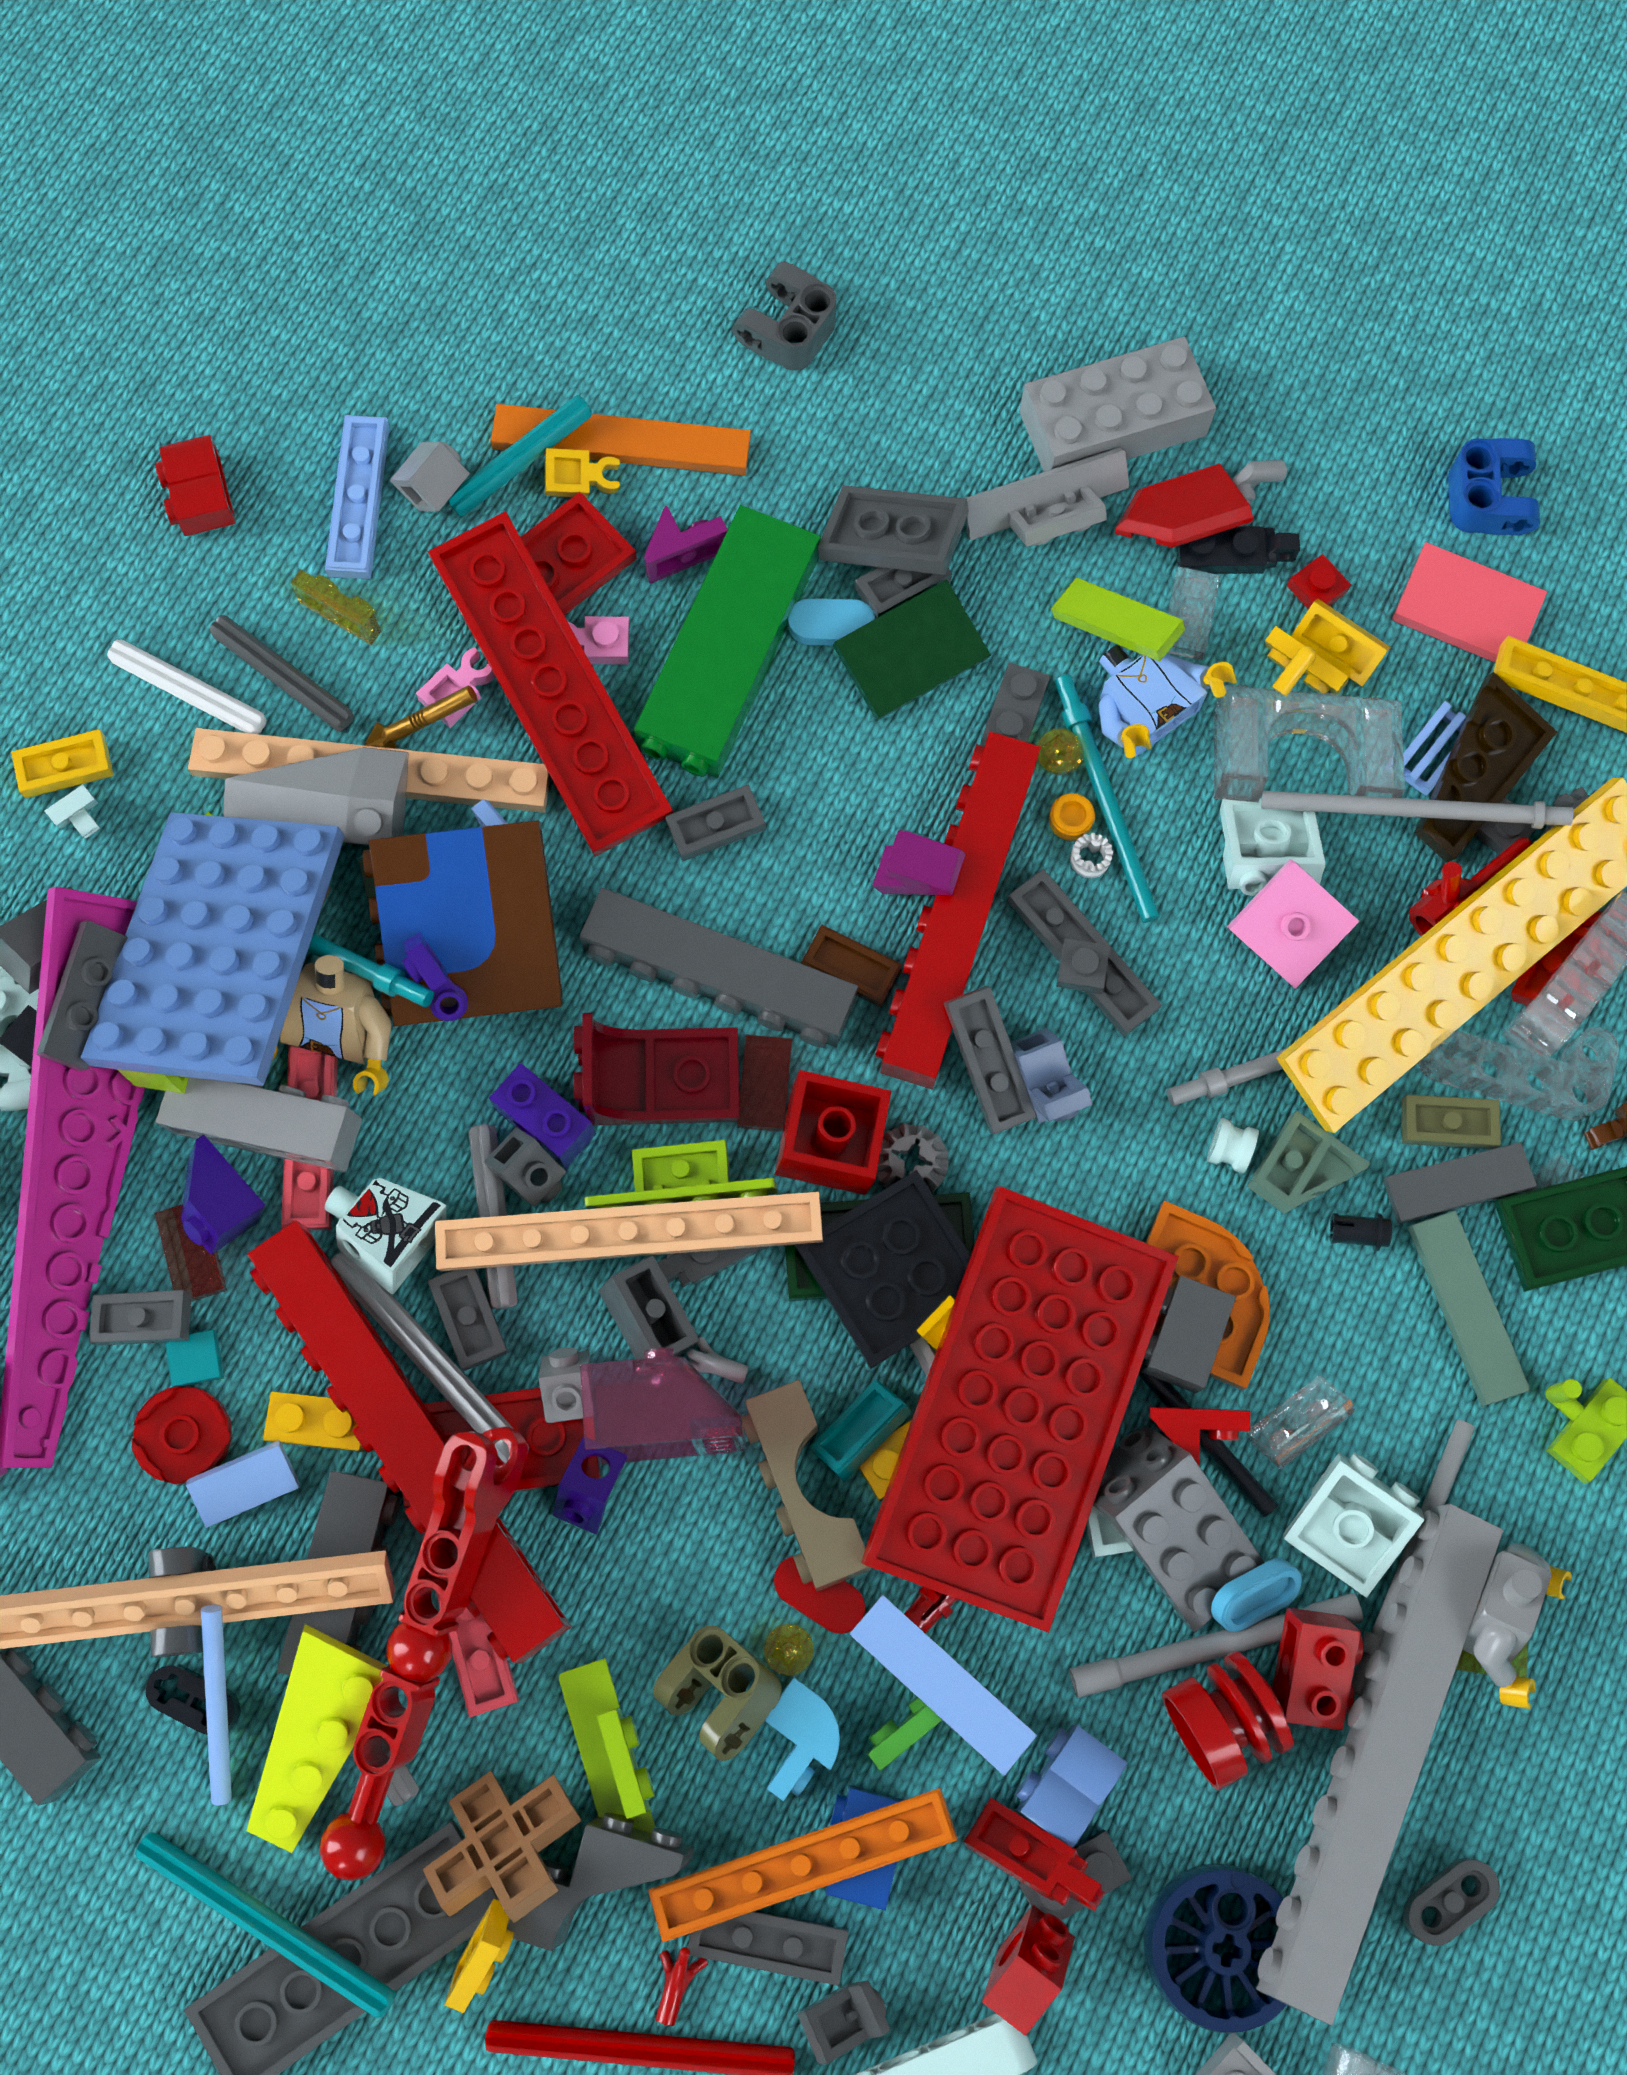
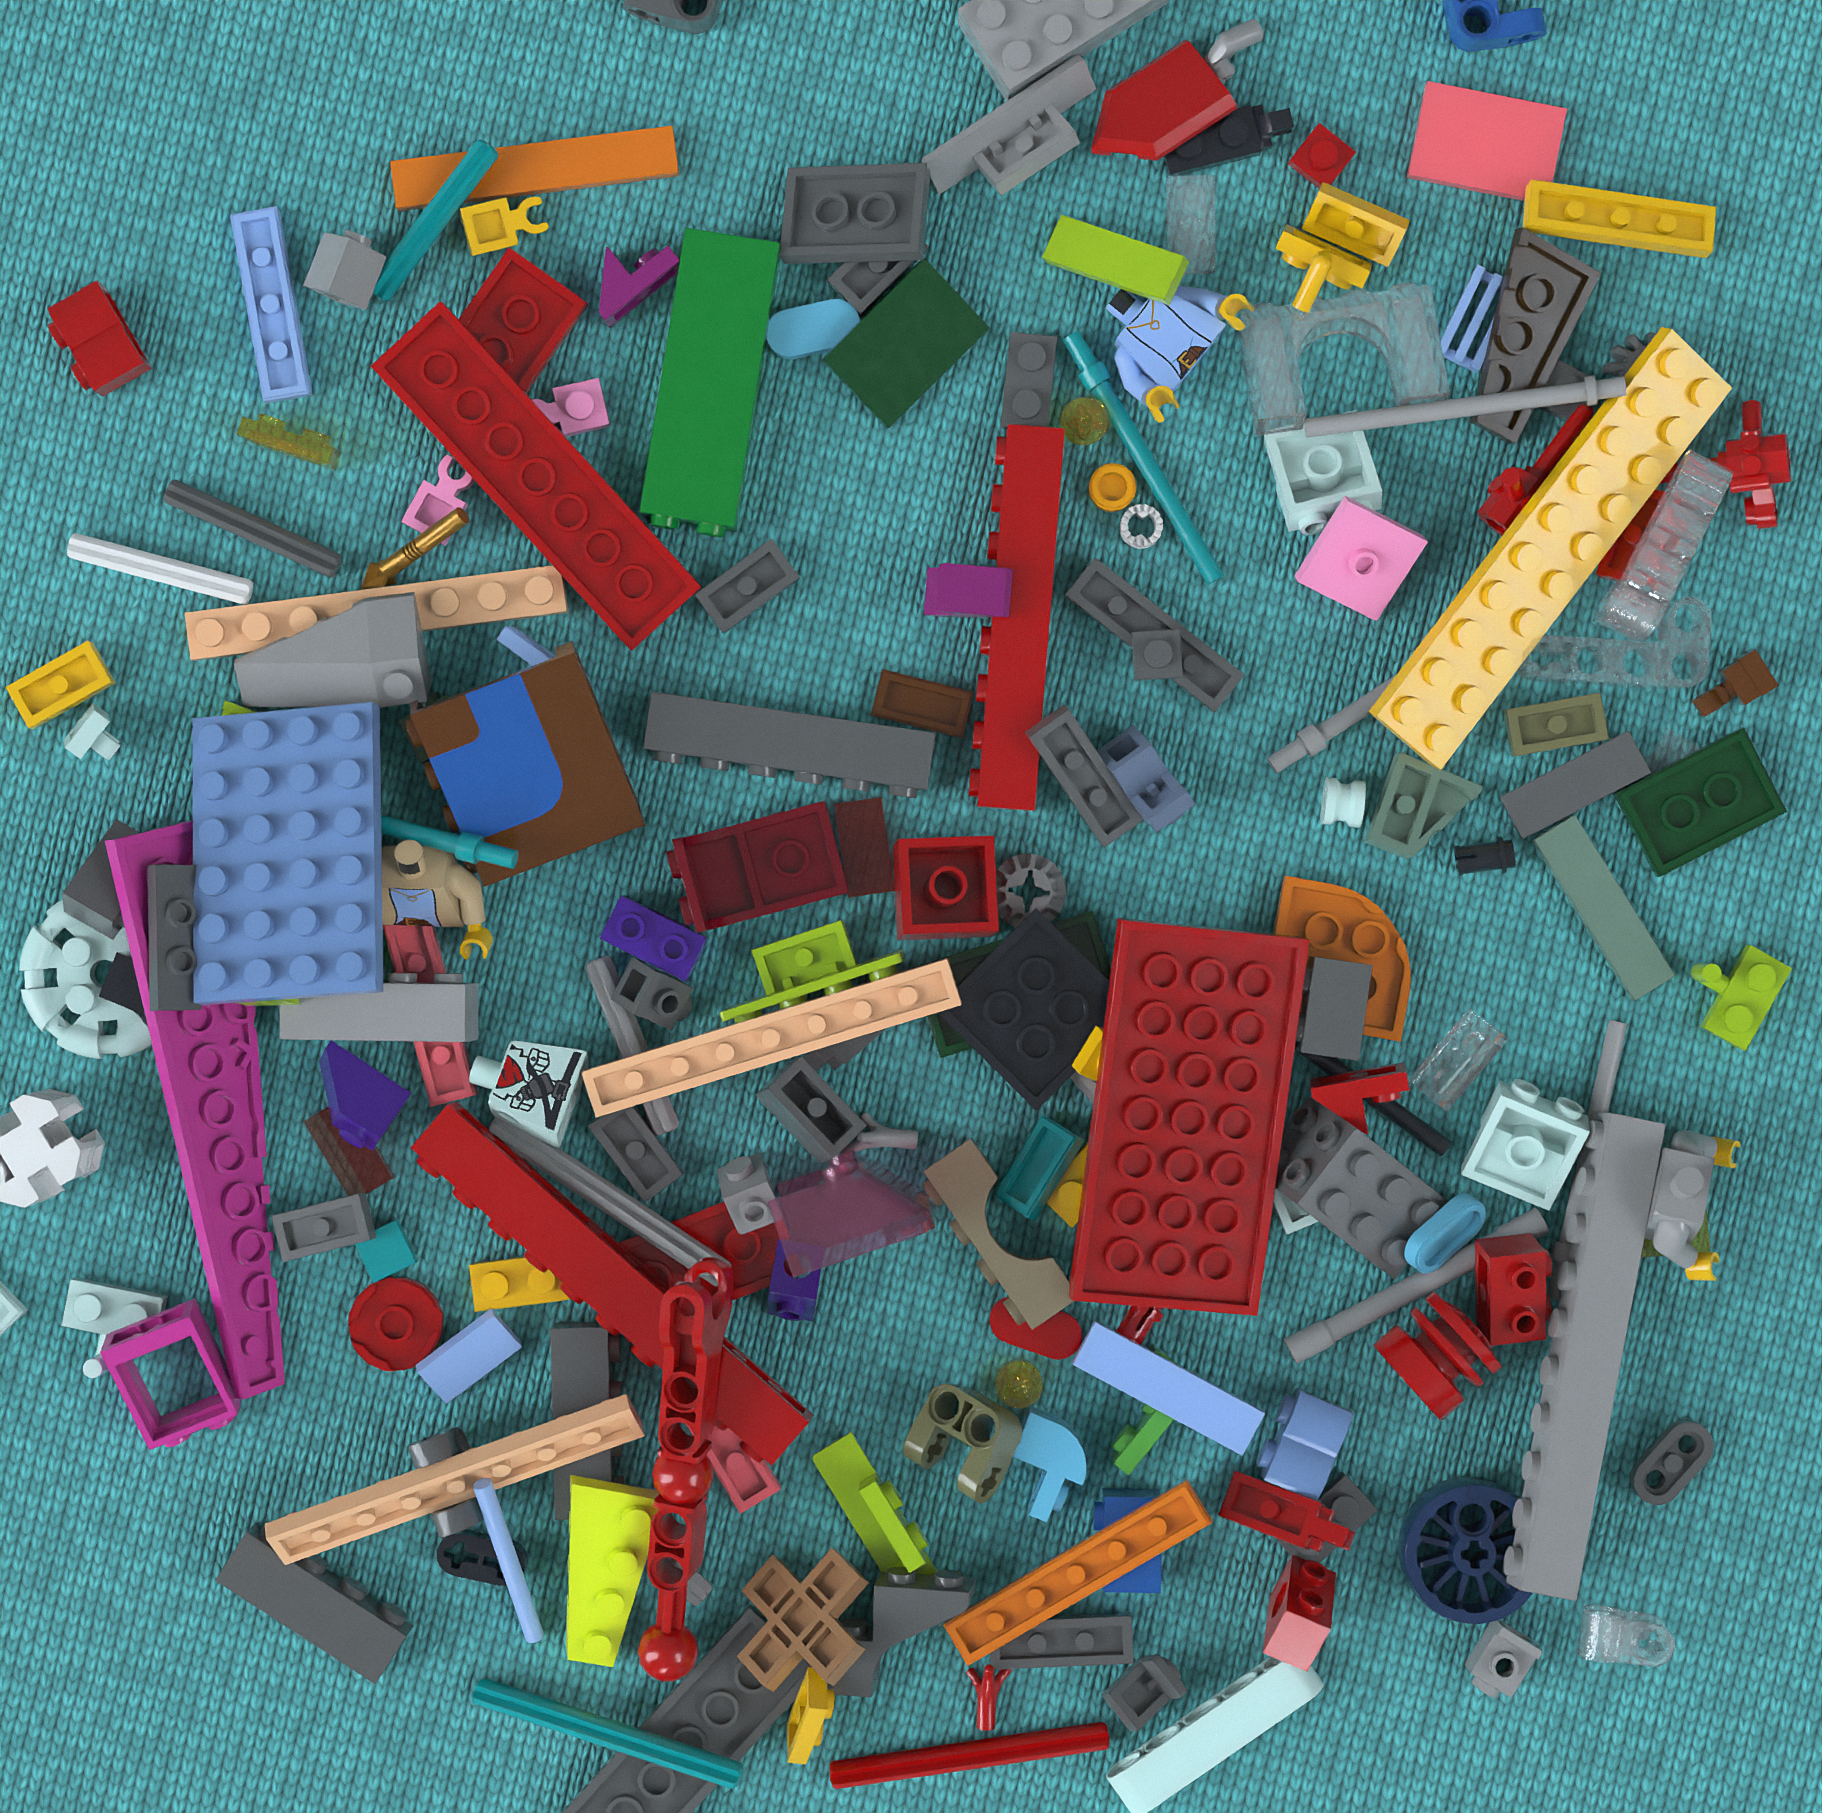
camera: 10 degrees left, 15 degrees up
(425, 965) = (504, 827): dark purple plate -> none

